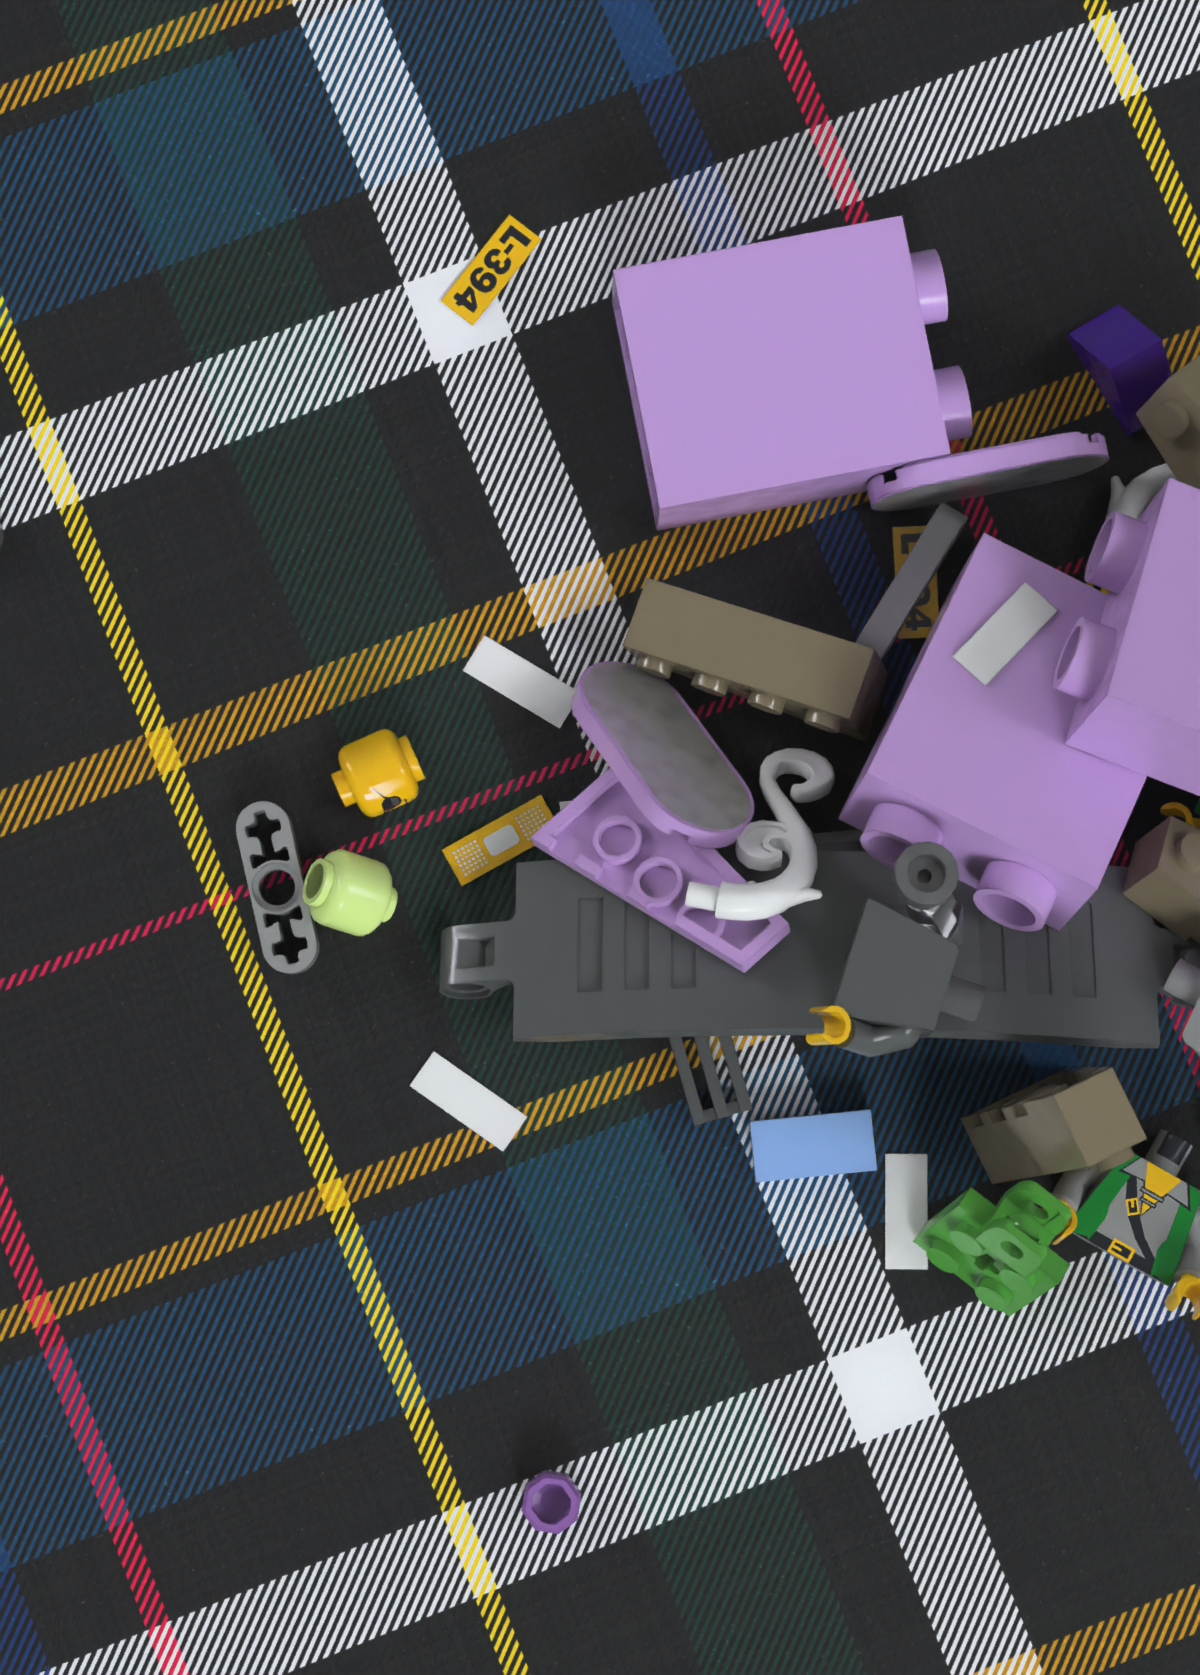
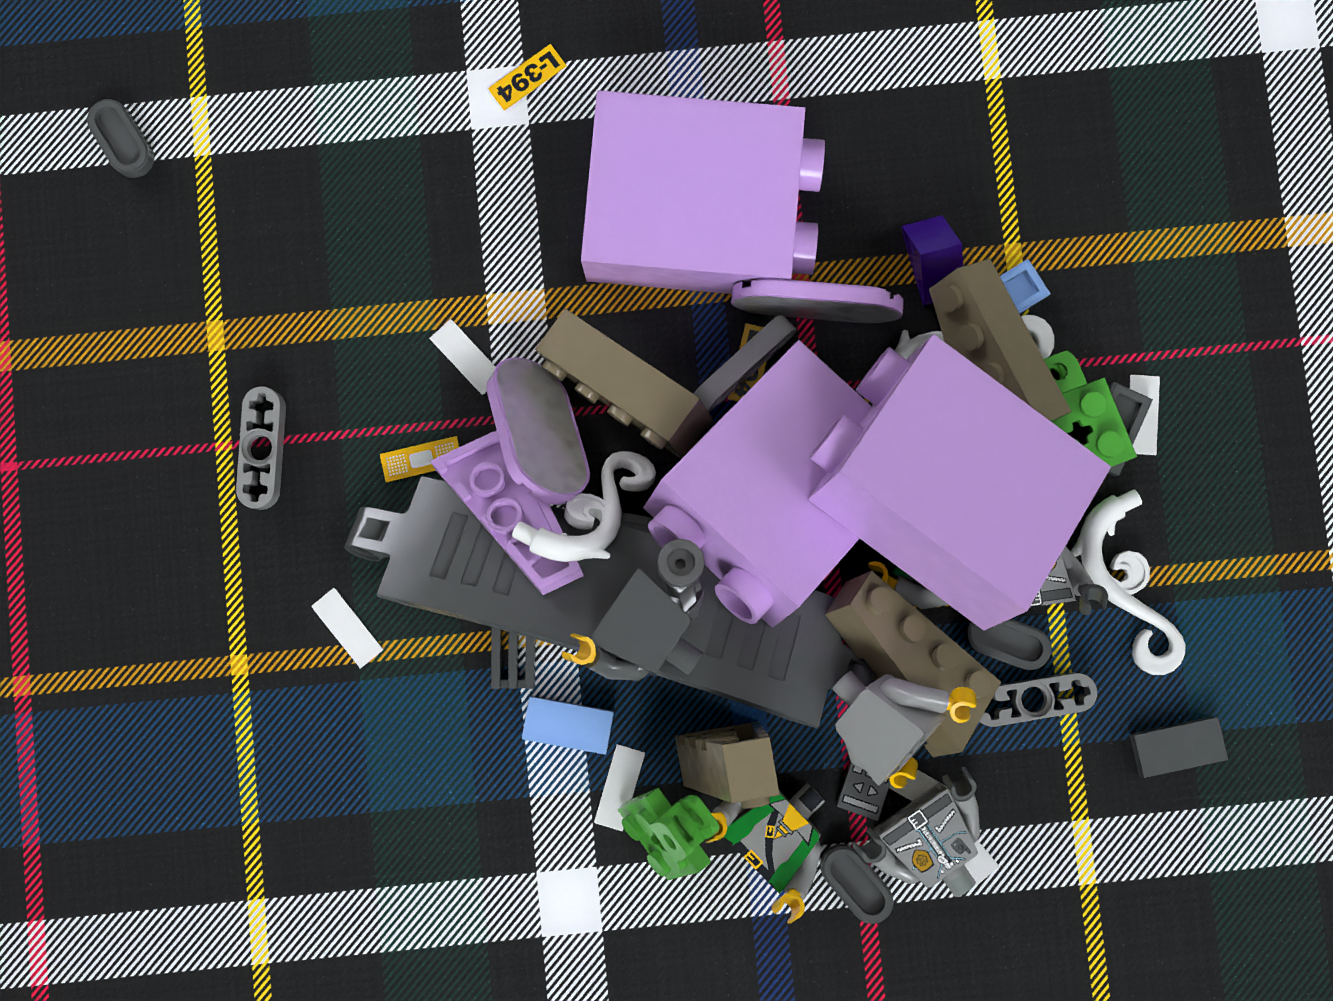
camera: 25 degrees right, 0 degrees up
(349, 892) = (304, 465): yellowish green head -> none
(378, 773) = (349, 390): yellow head -> none
(551, 1502) = (319, 916): medium lavender tile -> none
(1005, 633) = (790, 412): white sticker -> none

